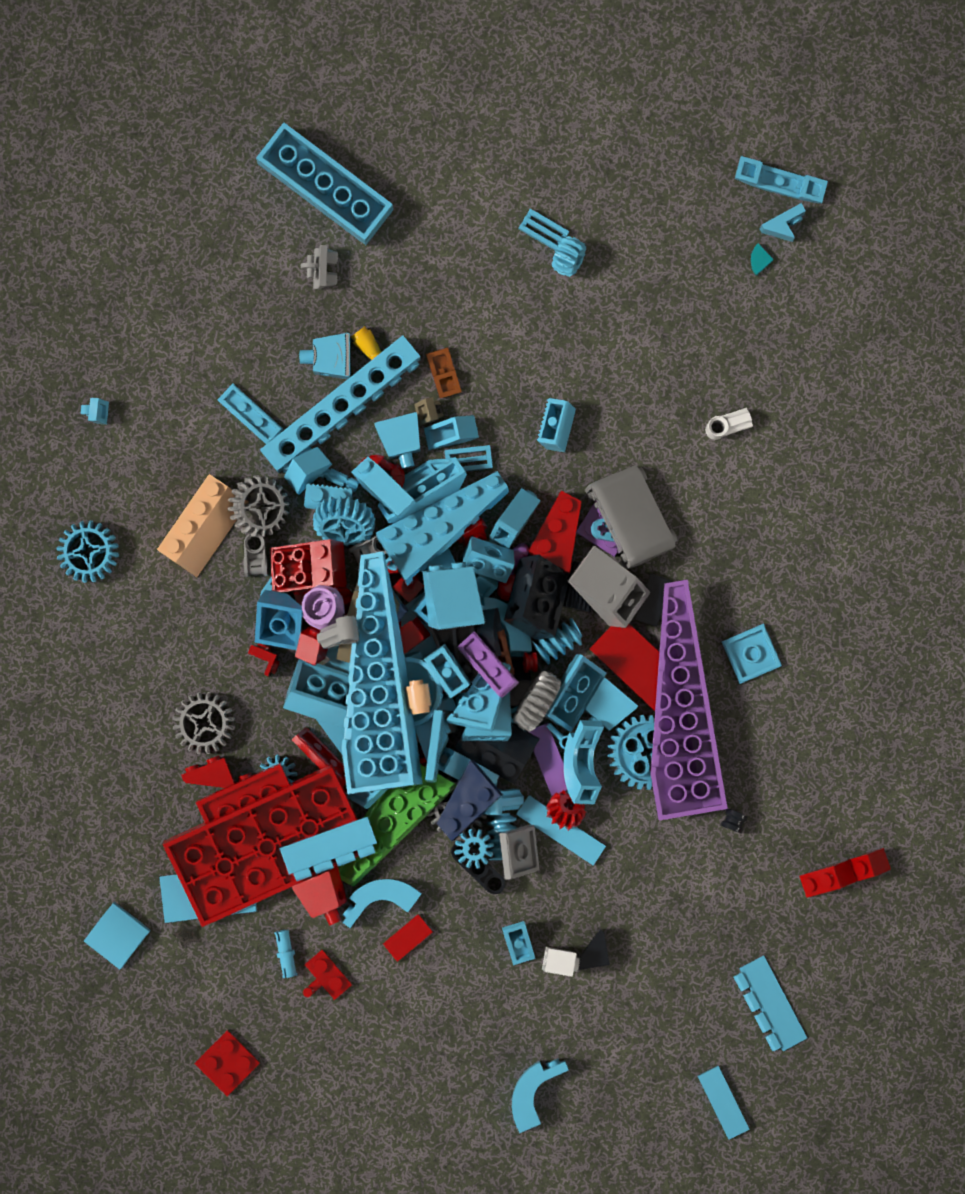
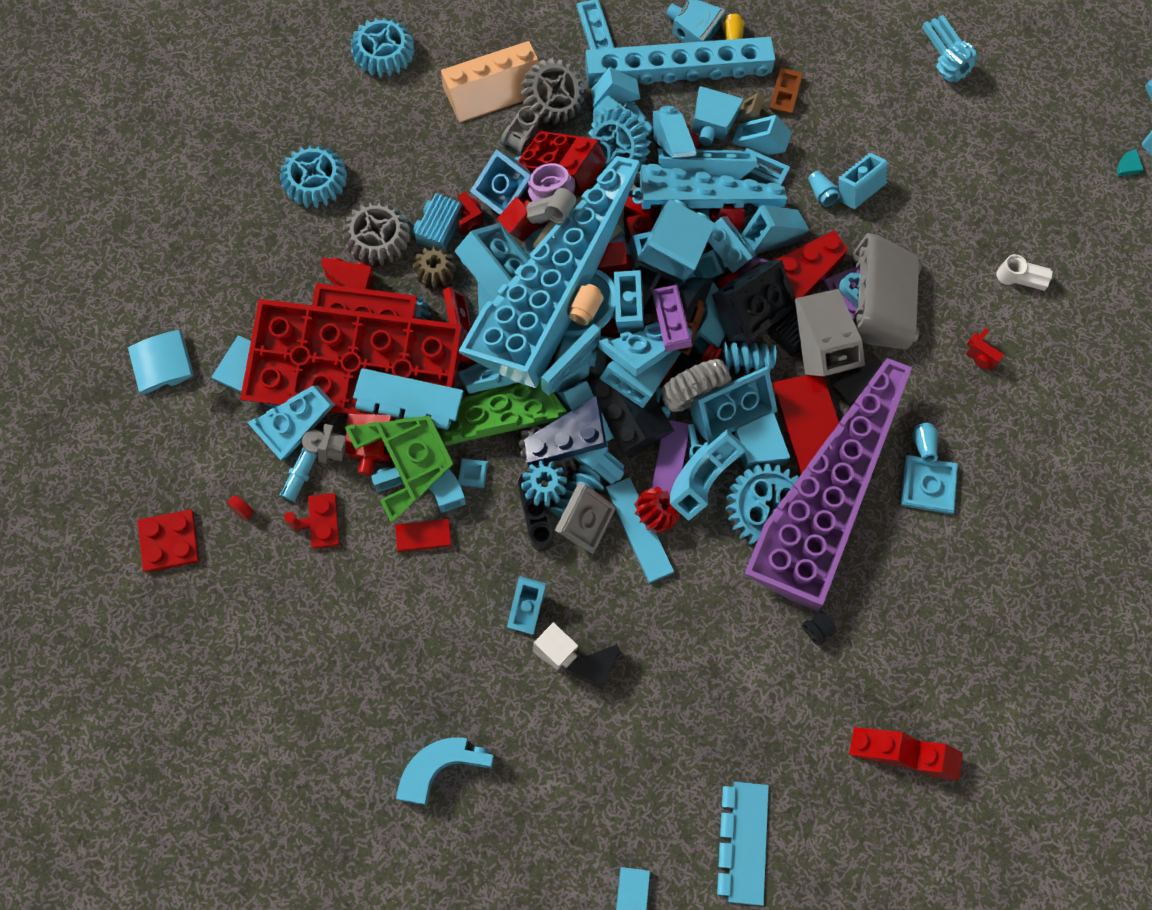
camera: 30 degrees right, 15 degrees down
(117, 695) = (315, 184): none -> medium azure gear
(246, 682) = (438, 222): none -> medium azure brick
(254, 919) = (286, 425): none -> medium azure wing
(261, 720) = (444, 267): none -> dark tan gear
(262, 1006) = (240, 507): none -> red tile
(290, 921) = (327, 445): none -> light grey hips
(365, 887) = (415, 453): none -> bright green wing
(411, 866) = (473, 473): none -> medium azure tile
(528, 448) = (824, 189): none -> medium azure cone
(731, 623) = (926, 441): none -> medium azure cone
(736, 520) = (982, 353): none -> red bracket

